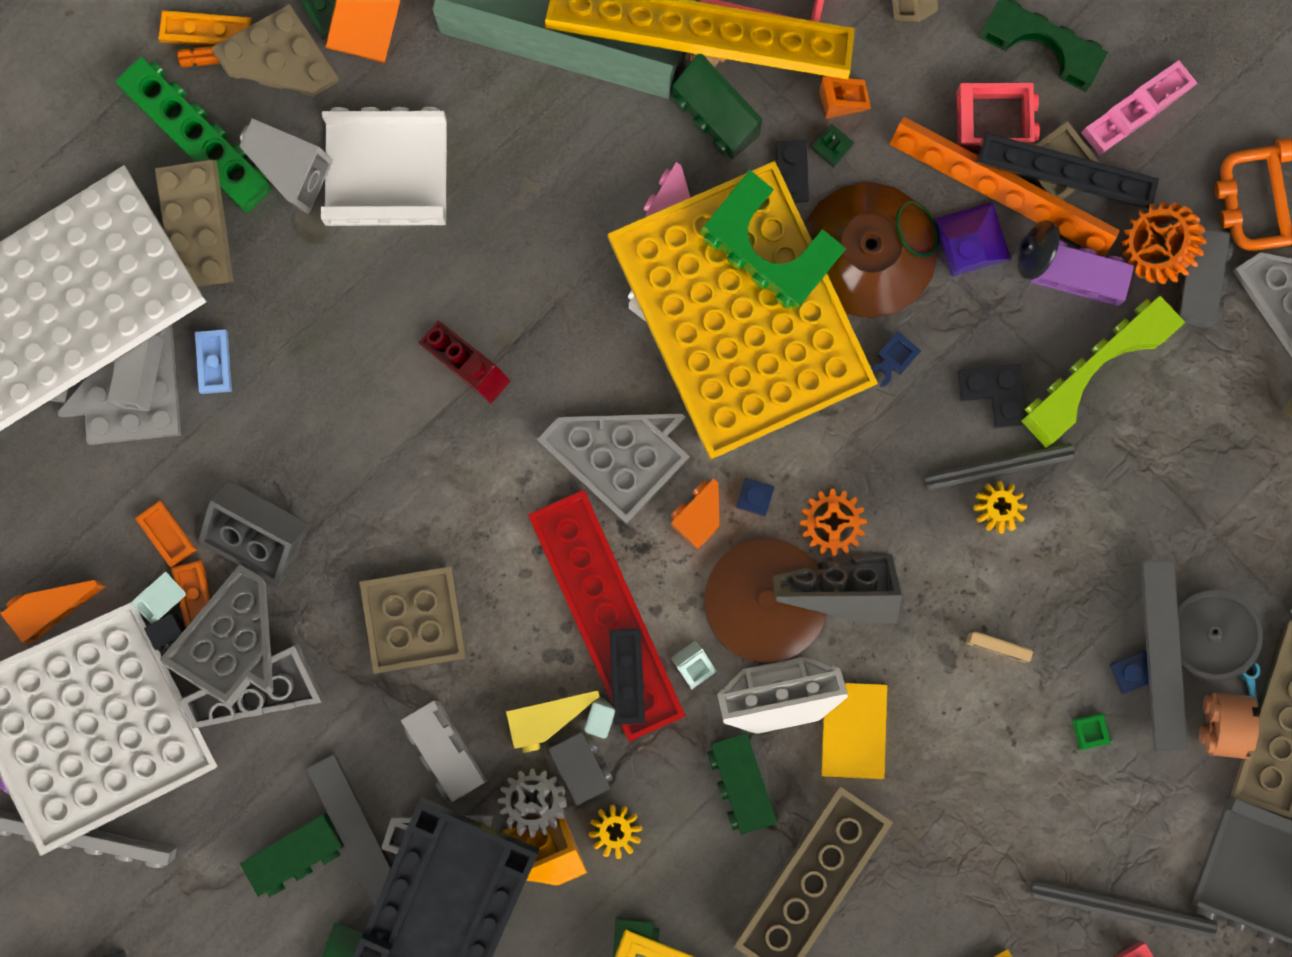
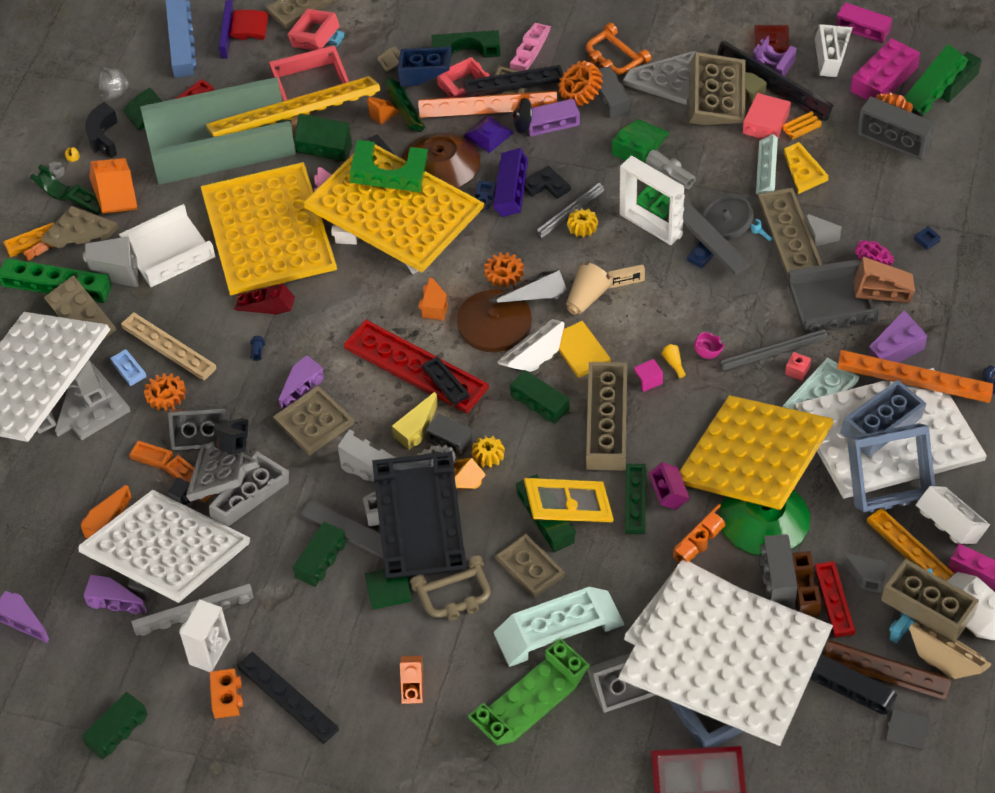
camera: 30 degrees left, 30 degrees down
(58, 912) = (205, 635): none -> white brick
(158, 598) = (165, 478): light aqua panel -> none
(230, 448) = (165, 392): none -> orange gear
(257, 610) = (231, 435): none -> black arch
(288, 358) = (168, 346): none -> tan plate
(407, 439) = (256, 349): none -> dark blue pin
(437, 537) = (300, 381): none -> medium lavender slope
(534, 223) = (265, 229): none -> yellow plate
(600, 718) = (444, 404): light aqua slope -> none
(618, 456) = (373, 299): light grey wing -> none
(693, 664) = (477, 365): light aqua slope -> none
(755, 497) = (456, 282): dark blue plate -> none
(832, 145) = (391, 131): dark green tile -> none
(879, 108) = (404, 105): none -> dark green plate
(902, 237) = (469, 145): dark green piece -> none
(918, 845) = (649, 374): none -> dark pink panel
(925, 639) = (587, 287): none -> tan cone
(941, 366) = (510, 182): none -> dark purple brick
(952, 54) = (422, 64): none -> dark blue slope
(973, 831) = (672, 356): none -> yellow cone
(1035, 850) = (708, 345): none -> dark pink hair
(1058, 412) = (599, 123): lime arch -> none
(1091, 731) = (699, 289): green tile -> none
(1115, 561) = (629, 173): none -> white window
(1141, 529) = (654, 202): none -> green slope
(1184, 401) = (637, 140): none -> green slope
(1193, 487) = (670, 168): none -> light grey piece
(1229, 725) = (761, 244): nougat brick -> none

